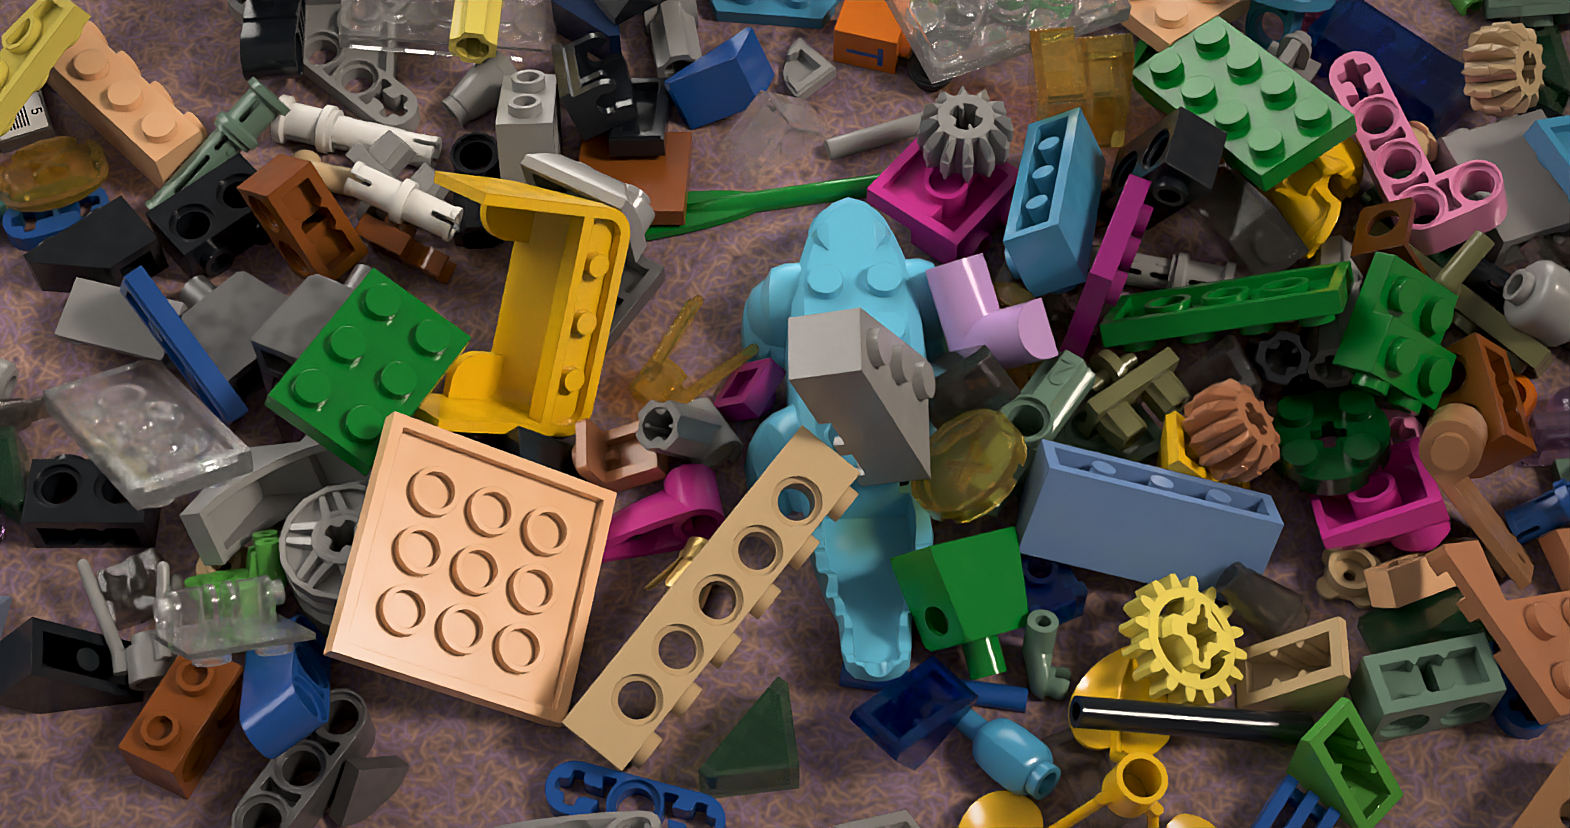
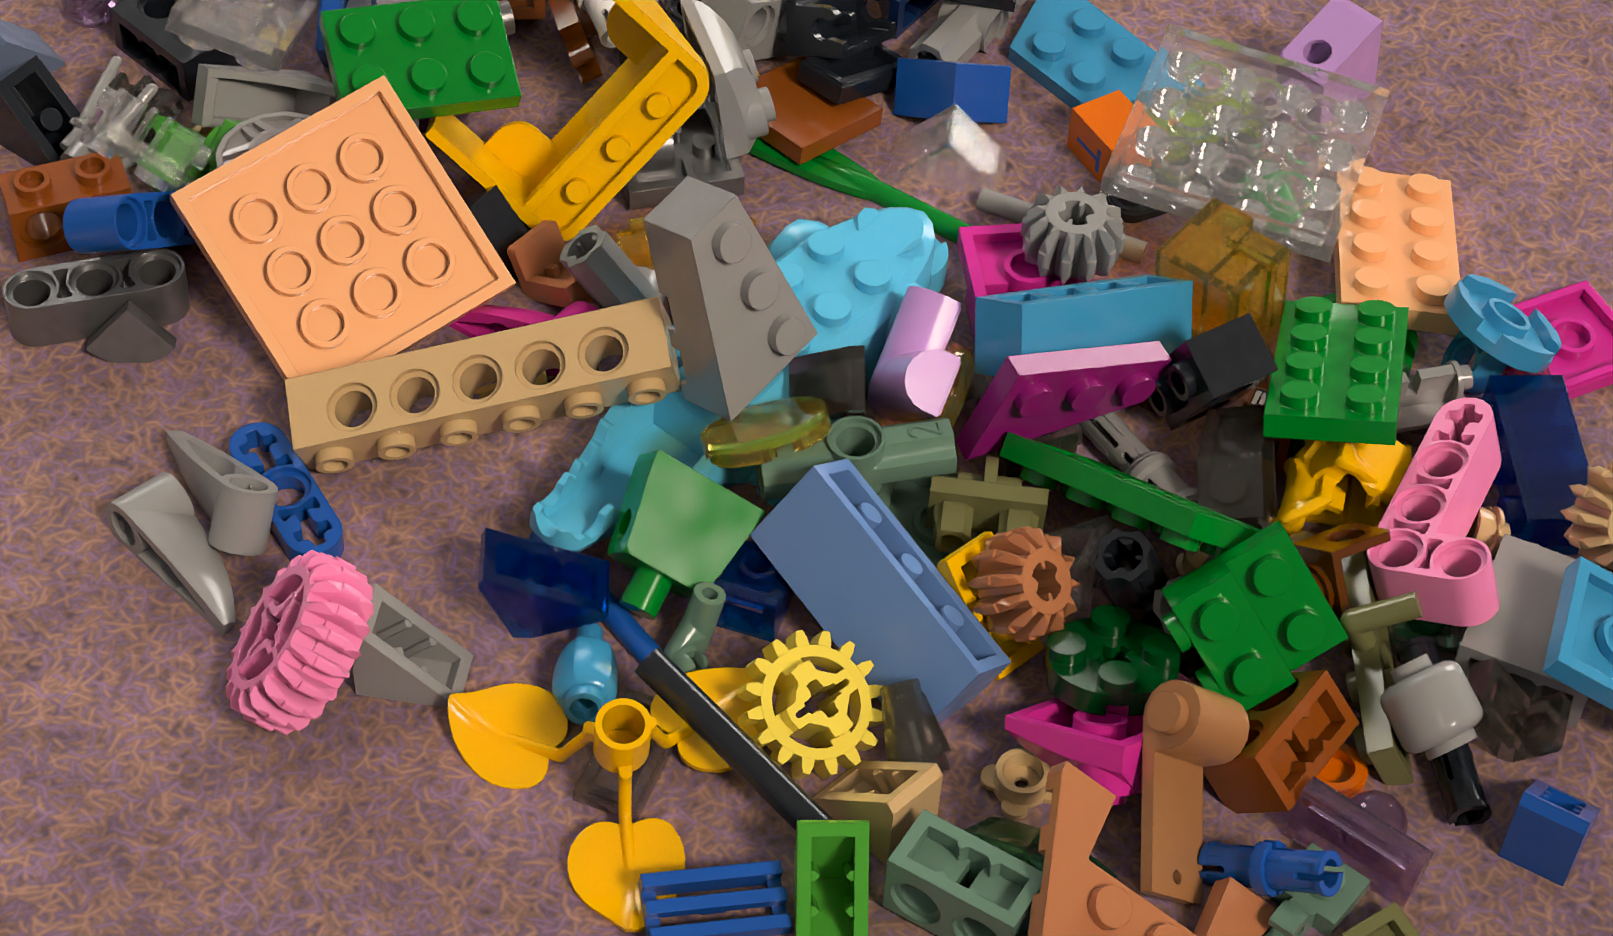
camera: 40 degrees right, 10 degrees down
(758, 752) = (411, 521): clear green slope -> none
(805, 70) = (1031, 136): light grey tile -> none
(1406, 579) = (1117, 839): light nougat piece -> none

